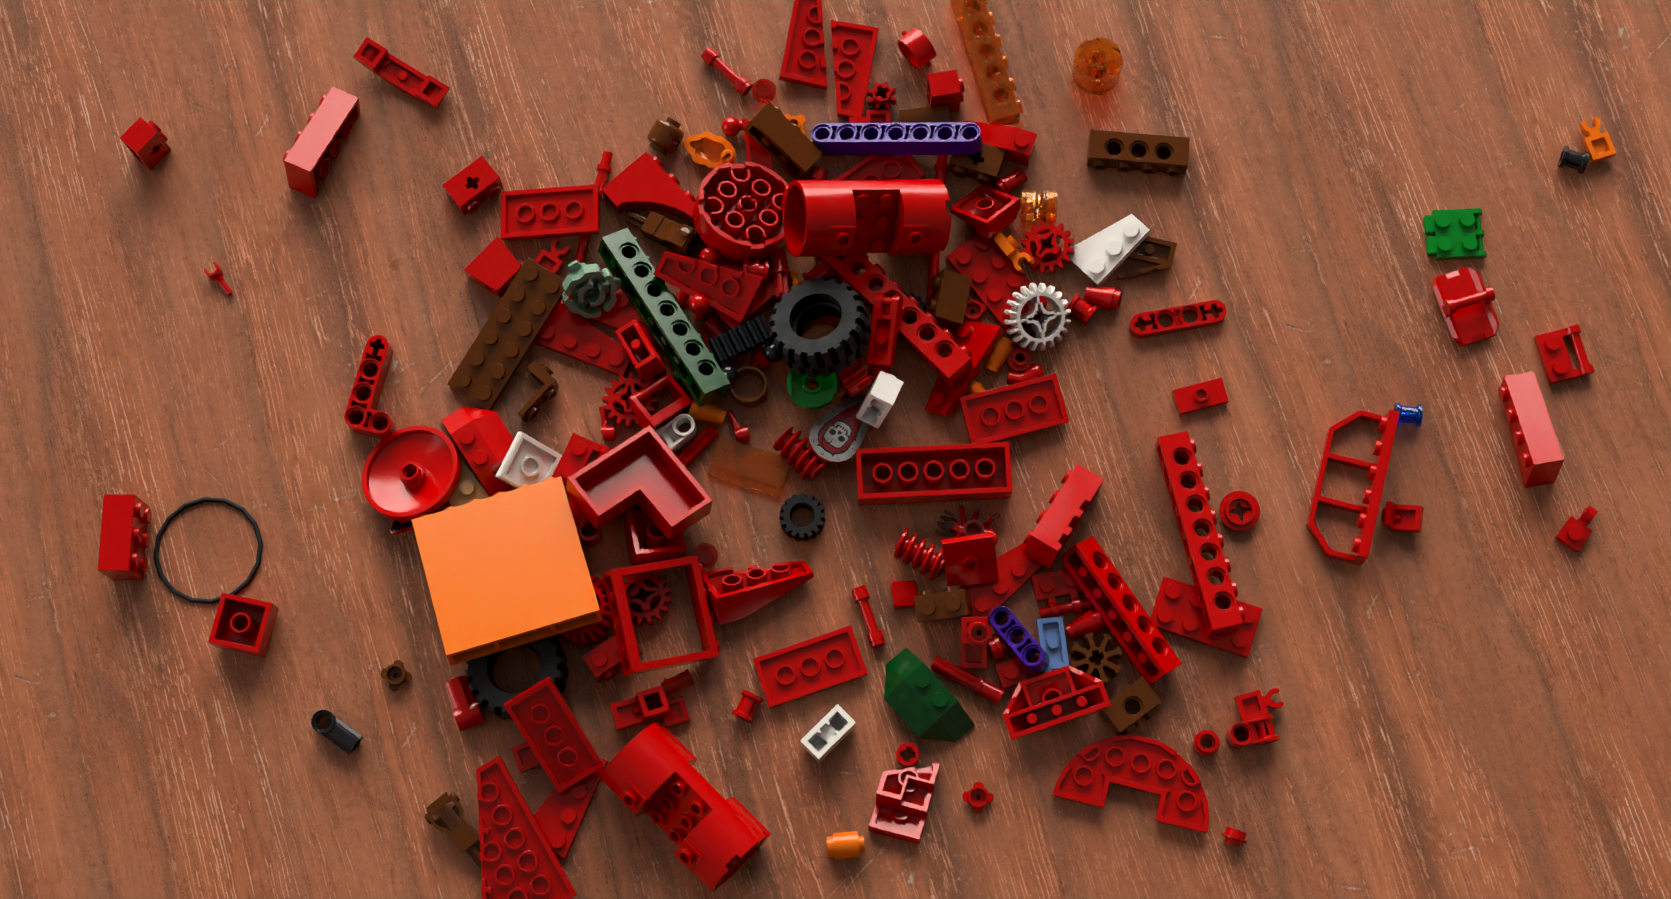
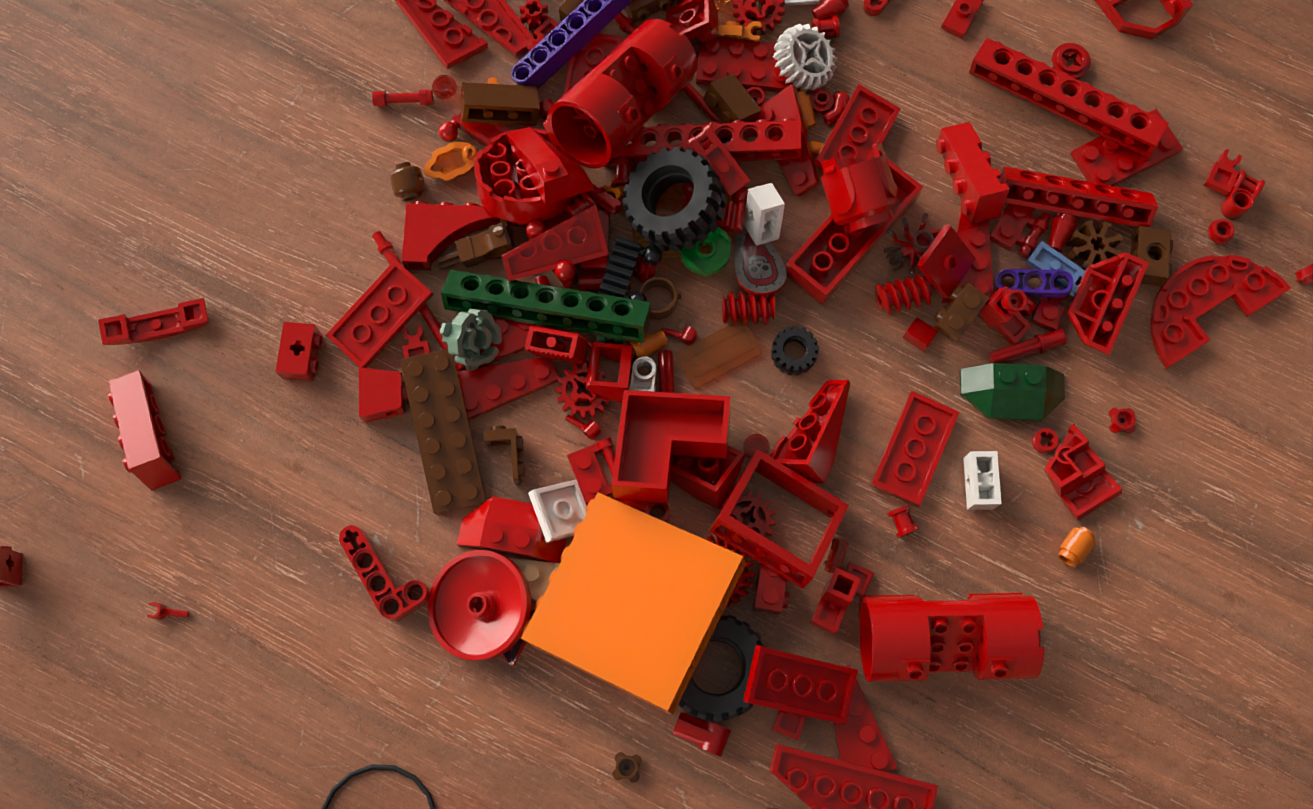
camera: 50 degrees left, 0 degrees up
(760, 220) = (548, 167): none -> red wedge
(861, 596) = (934, 382): red bar -> none
(952, 448) = (861, 191): none -> red piece

